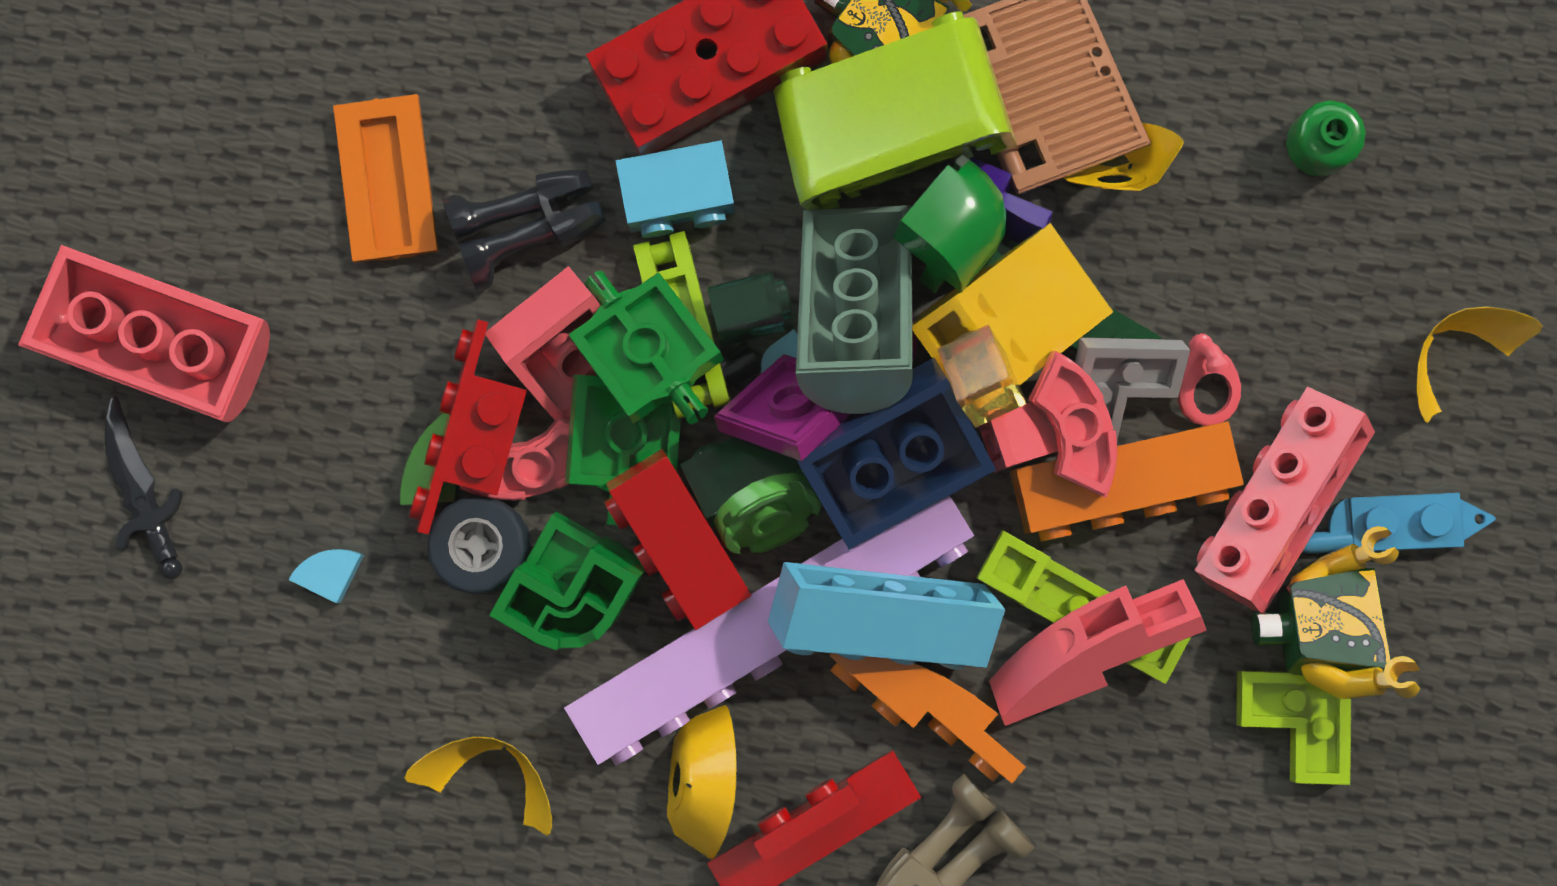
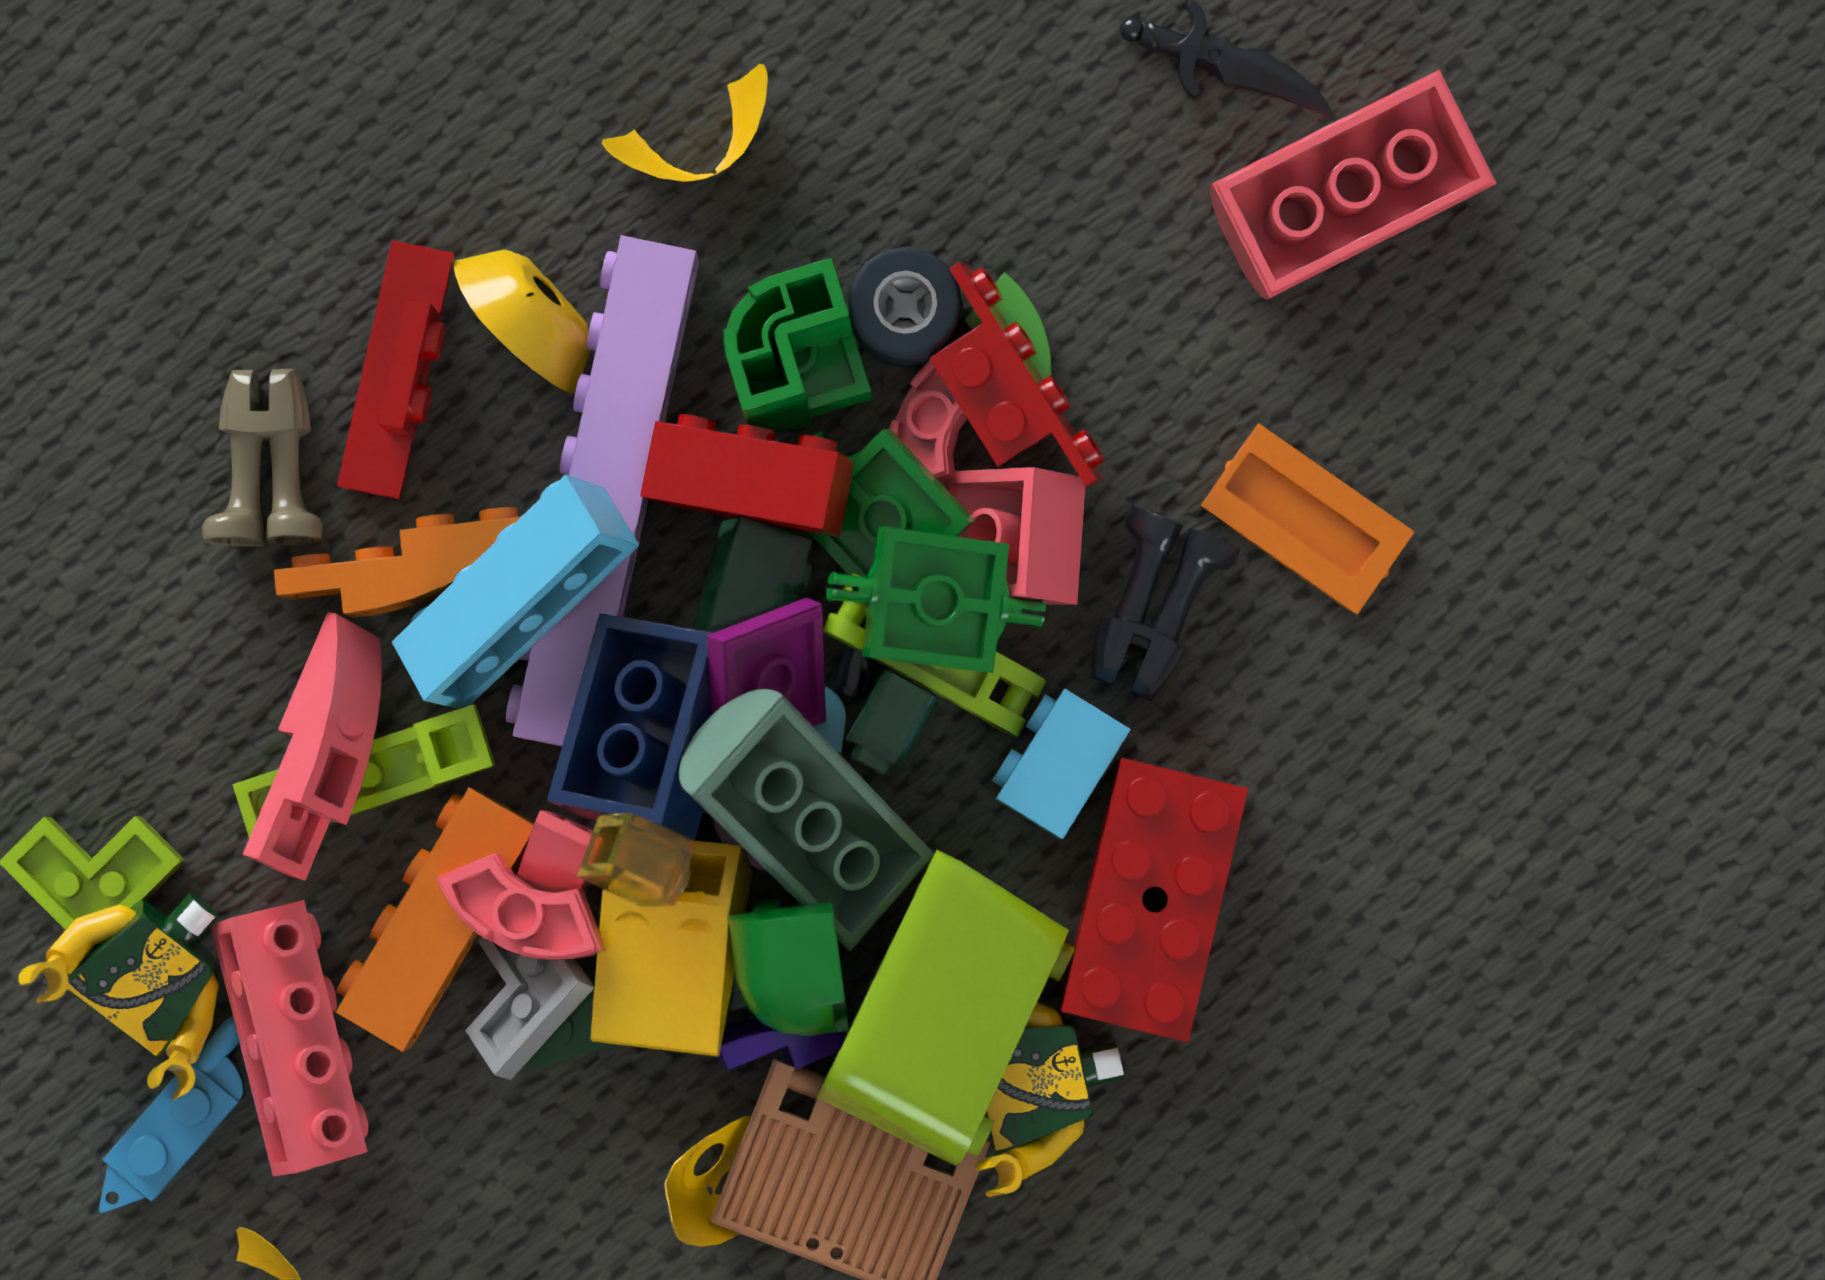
camera: 130 degrees right, 0 degrees up
(328, 573) = (1003, 158): medium azure tile -> none
(766, 513) = (699, 573): bright green tile -> none
(1204, 359) = (473, 1088): coral piece -> none

